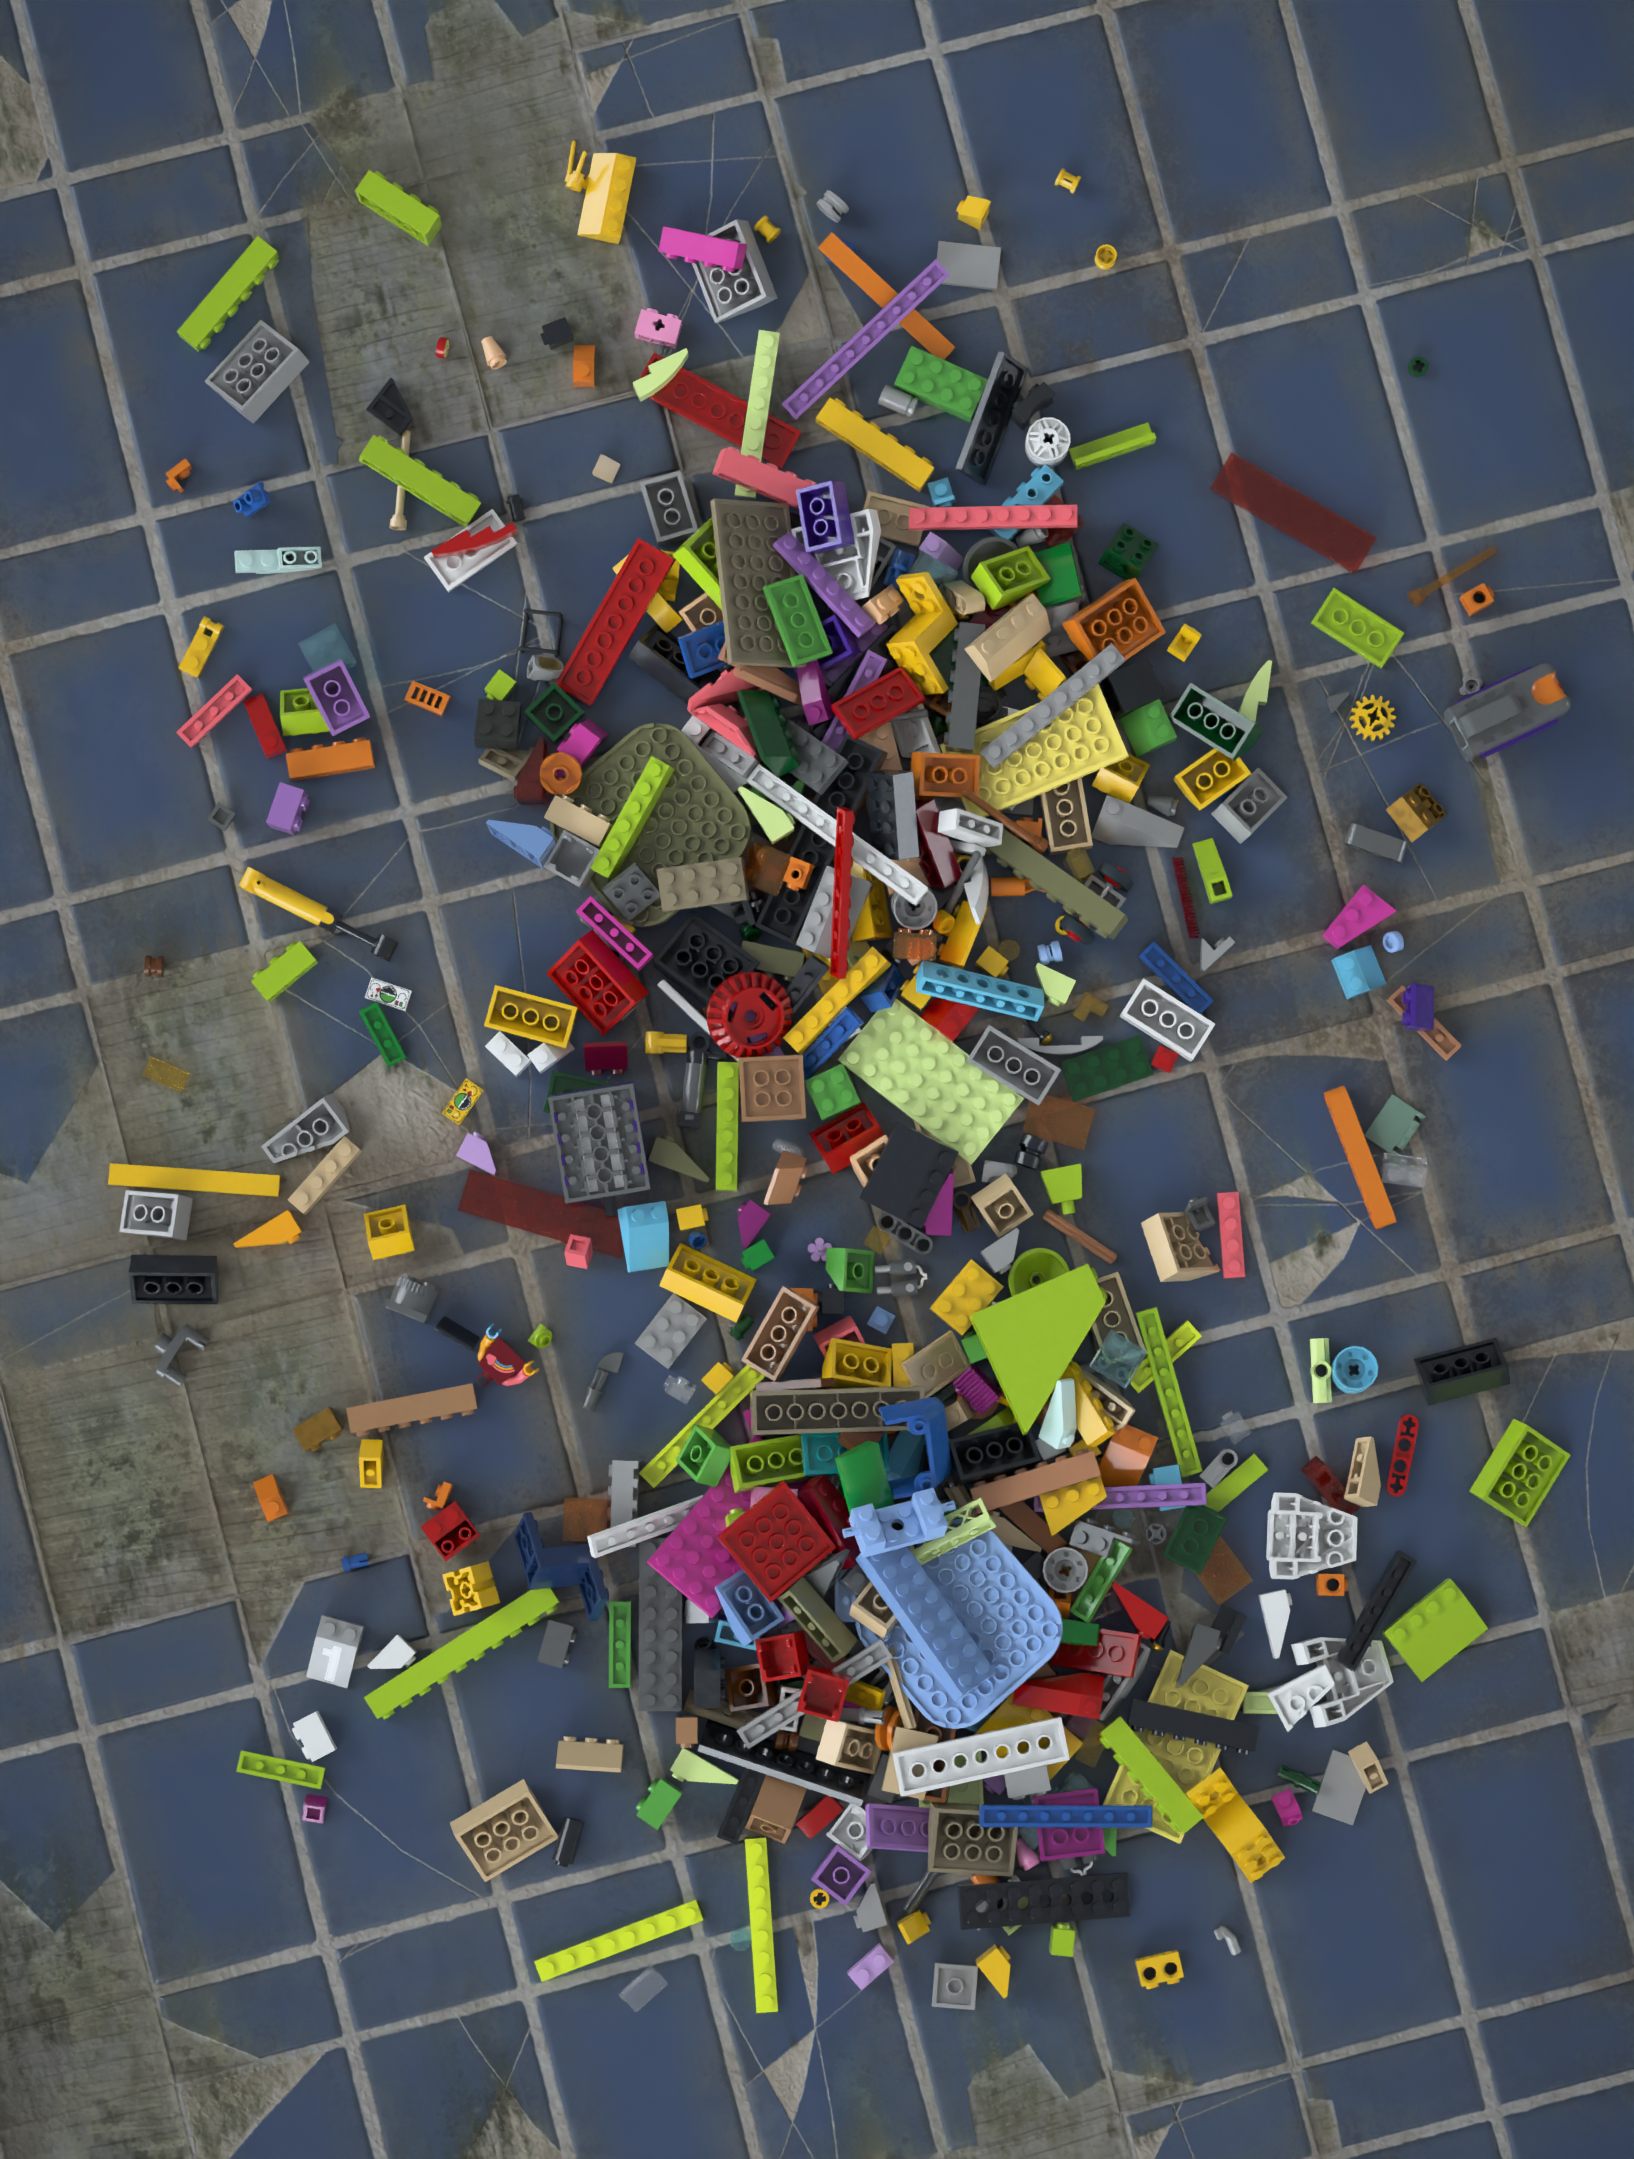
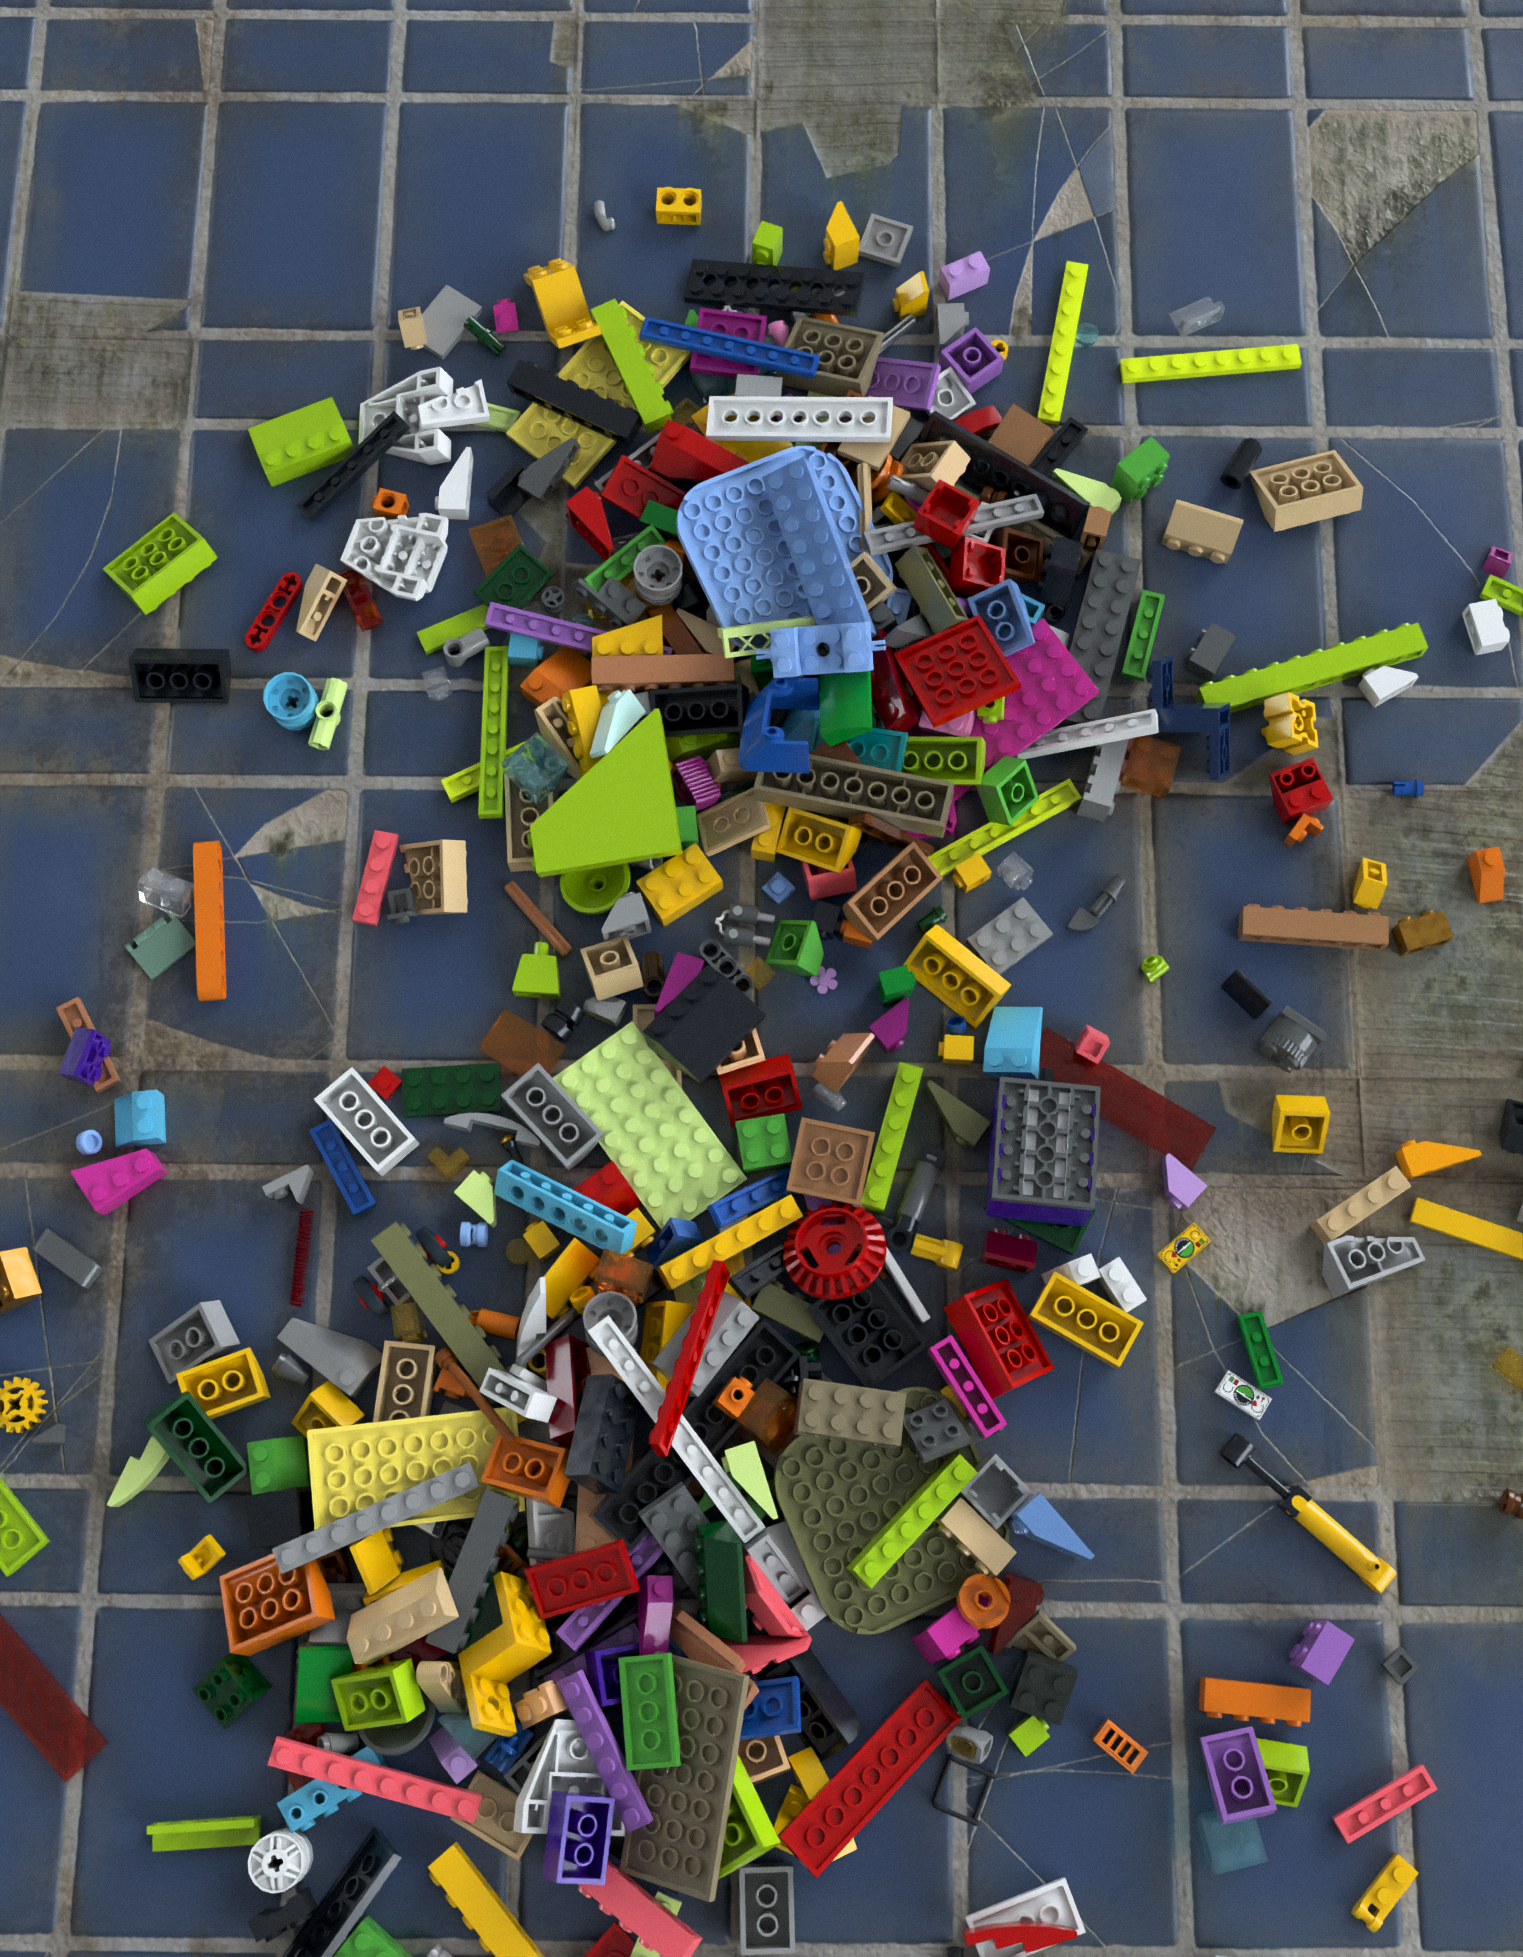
camera: 160 degrees left, 10 degrees down
(265, 726) = (1325, 1765): red slope -> none
(283, 971) = (1361, 1455): lime brick -> none
(335, 1651) = (1445, 707): slope -> none
(501, 1362) = (1204, 949): torso -> none
(941, 493) = (430, 1831): medium azure bracket -> none
(1212, 871) = (261, 1276): lime slope -> none

